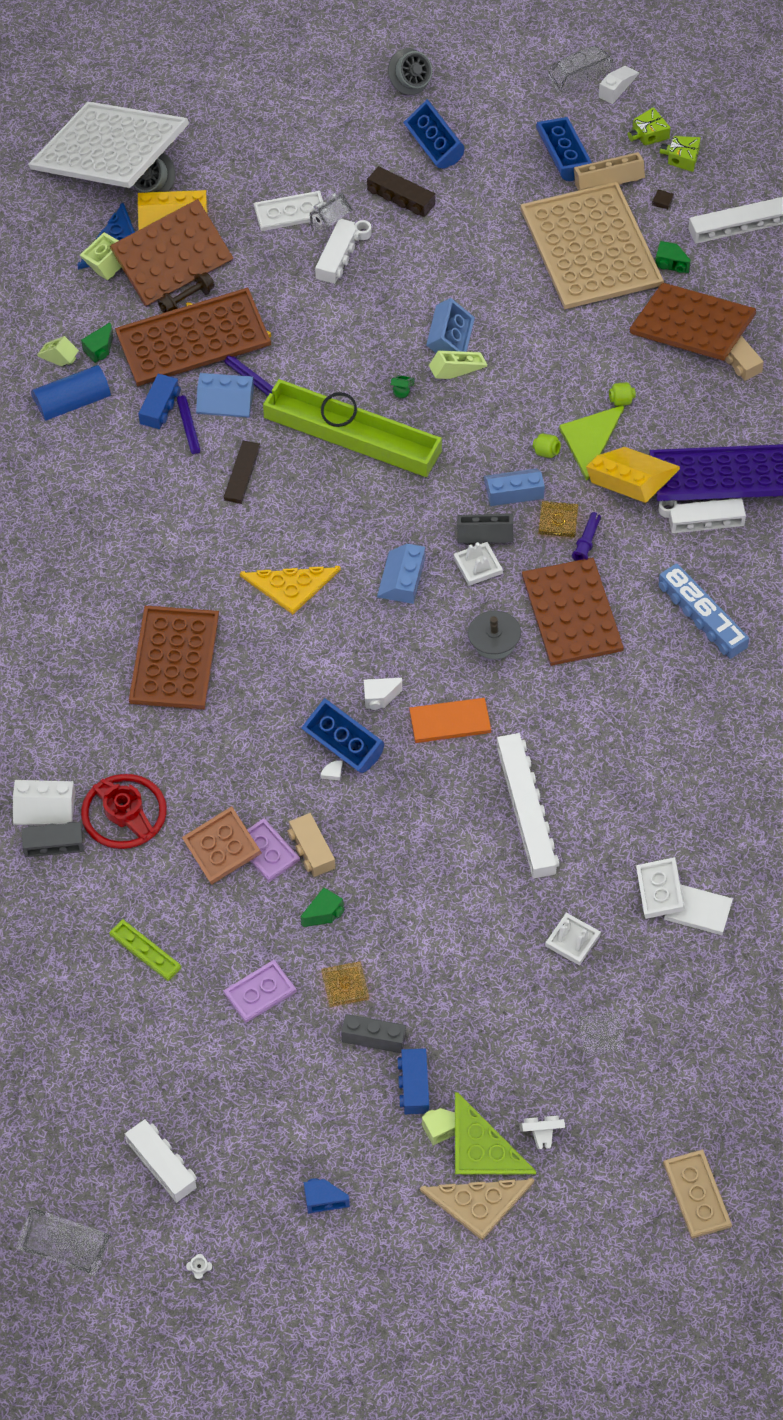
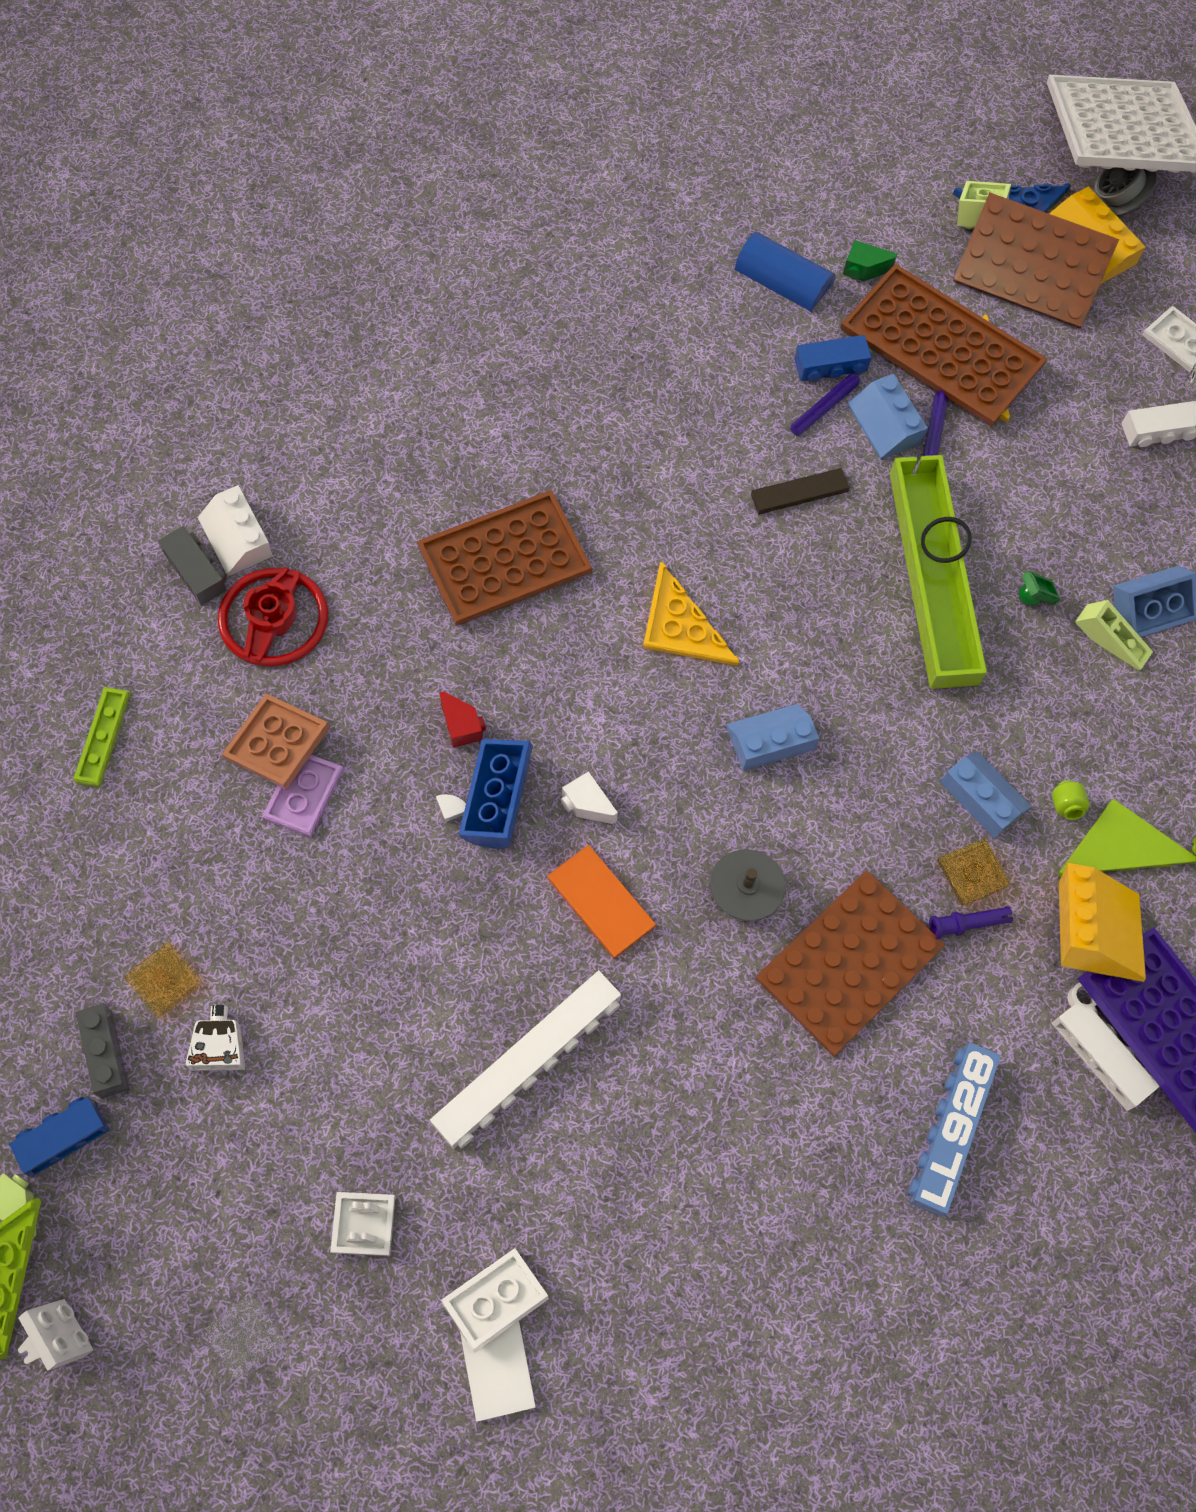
camera: 55 degrees right, 10 degrees up
(59, 351) = (827, 232): yellowish green slope -> none
(203, 282) = (1022, 315): dark brown piece -> none
(259, 991) = (107, 889): lavender tile -> none
(277, 736) = (461, 720): none -> red slope
(311, 845) = (331, 838): tan brick -> none
(323, 909) = (250, 898): green slope -> none
(409, 968) = (216, 1043): none -> white torso
(478, 563) = (844, 812): white plate -> none
(485, 528) = (896, 793): dark grey brick -> none

